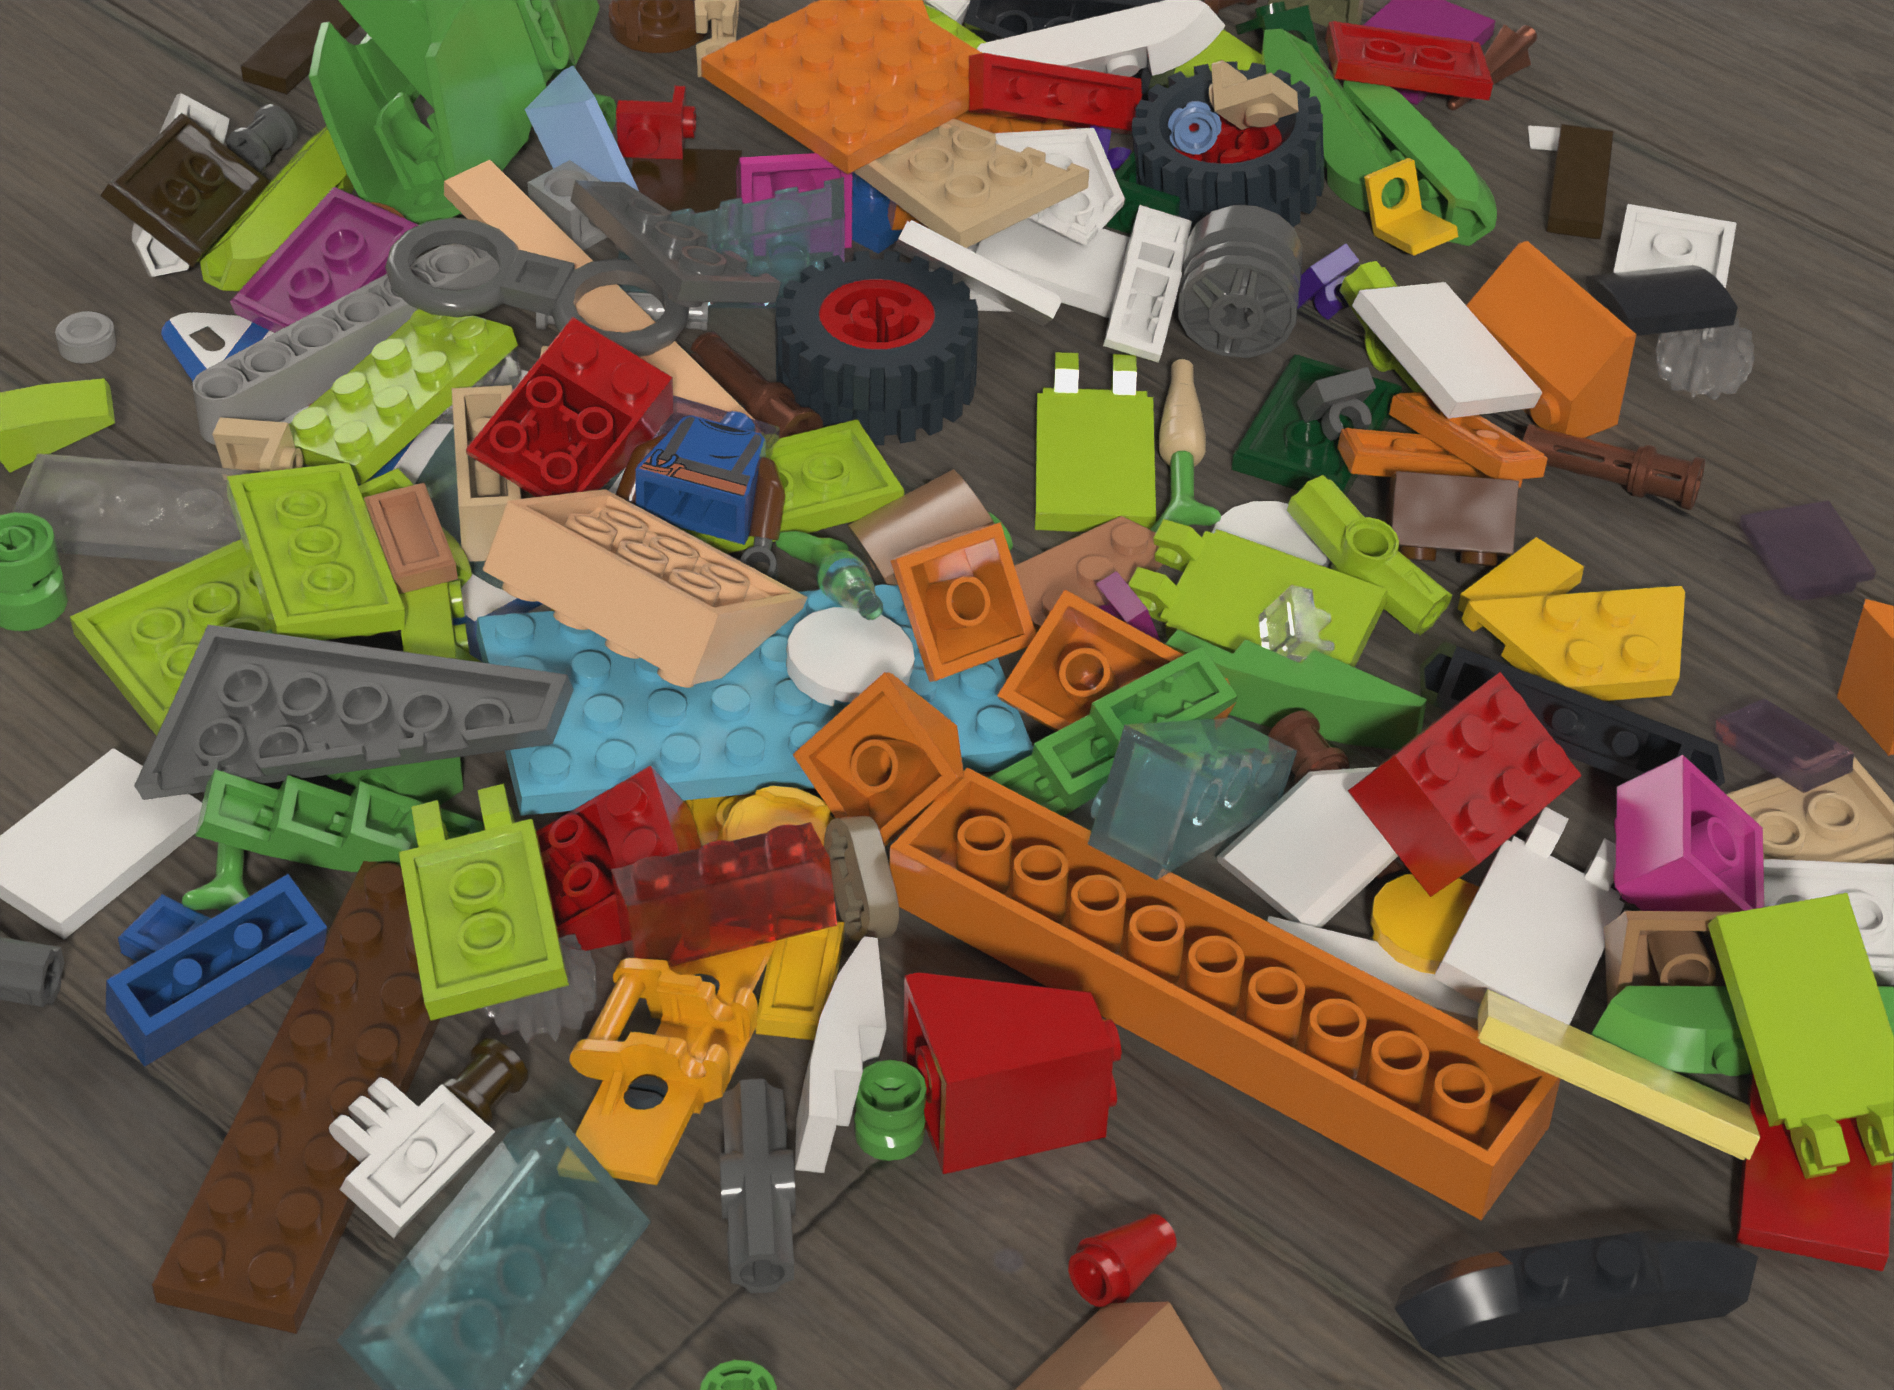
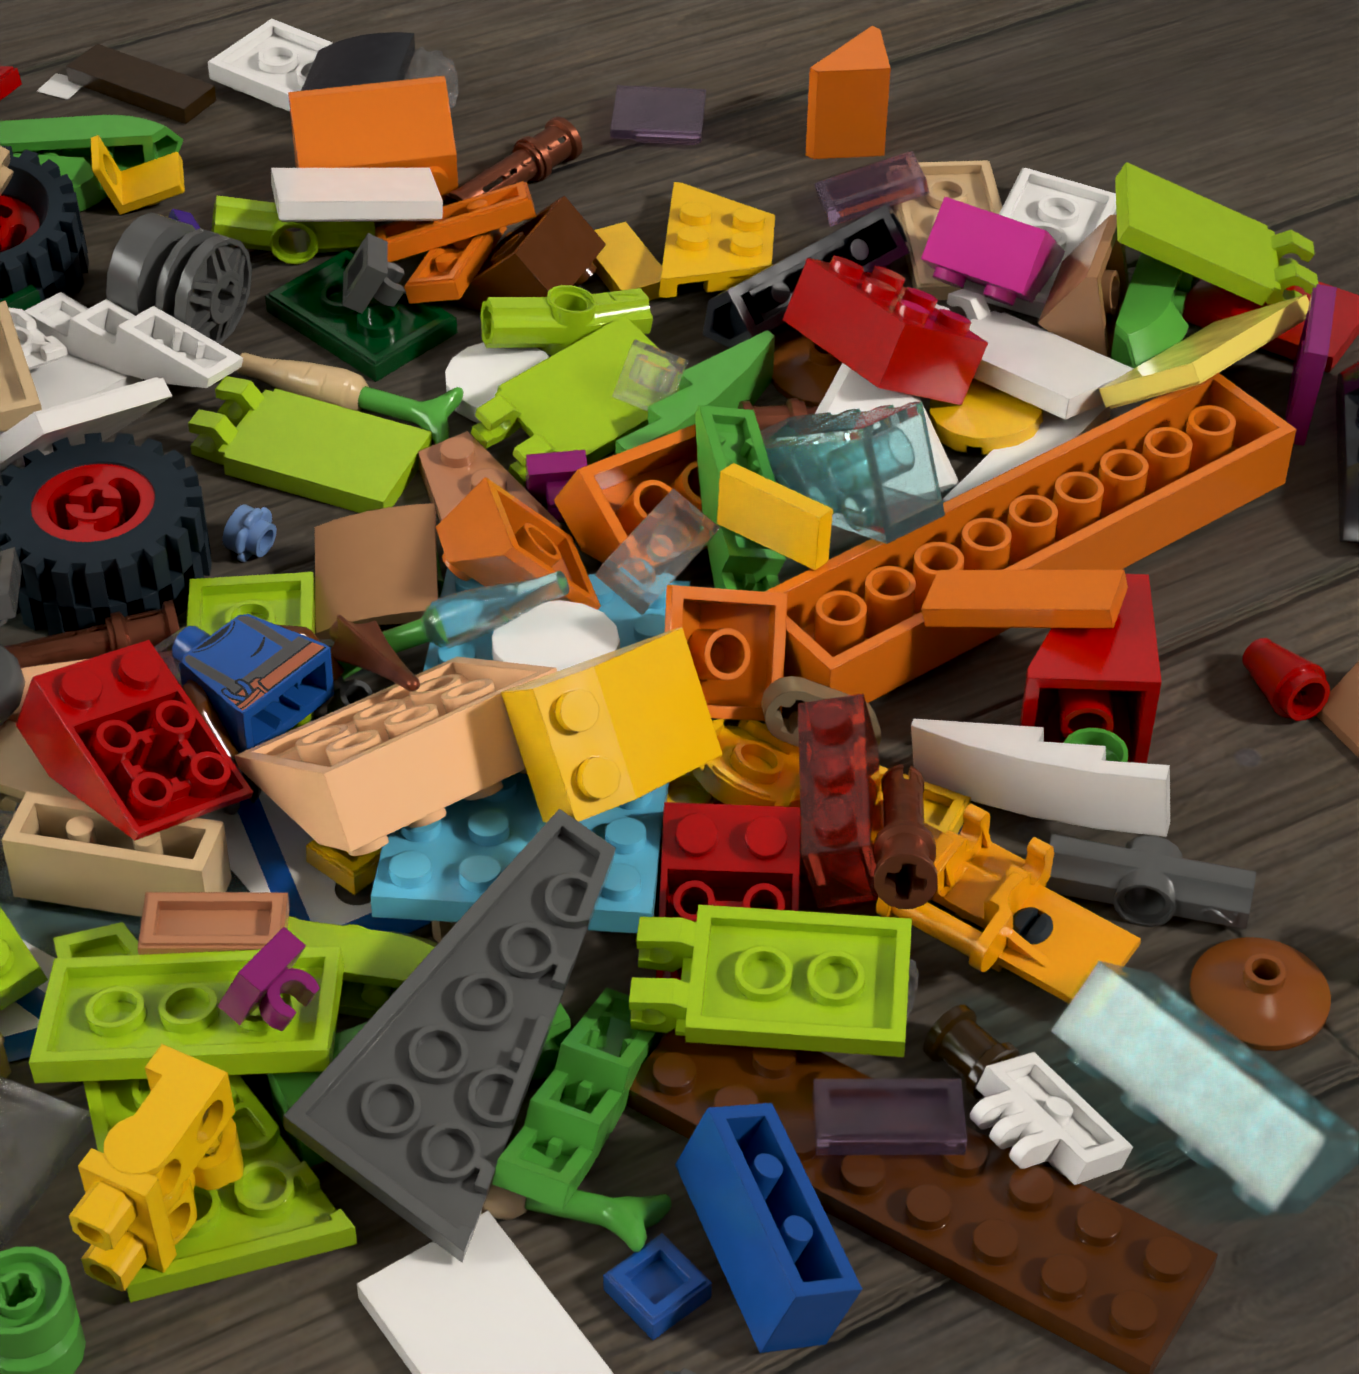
camera: 70 degrees left, 0 degrees up
(133, 571) = (144, 1182): none -> yellow hips
(320, 557) = (266, 978): none -> magenta tile
(363, 1028) = (889, 1117): none -> tile
(653, 942) = (904, 847): none -> copper pin
(666, 1340) = (1261, 992): none -> dark orange dish
(689, 687) = (612, 727): none -> yellow slope
(783, 537) = (368, 649): none -> copper piece
(949, 441) = (249, 532): none -> medium blue plate
(1011, 690) = (657, 551): none -> clear plate
(1021, 951) = (1025, 598): none -> orange tile
(1066, 742) = (774, 516): none -> yellow tile
(1661, 1178) = (1310, 361): none -> magenta tile

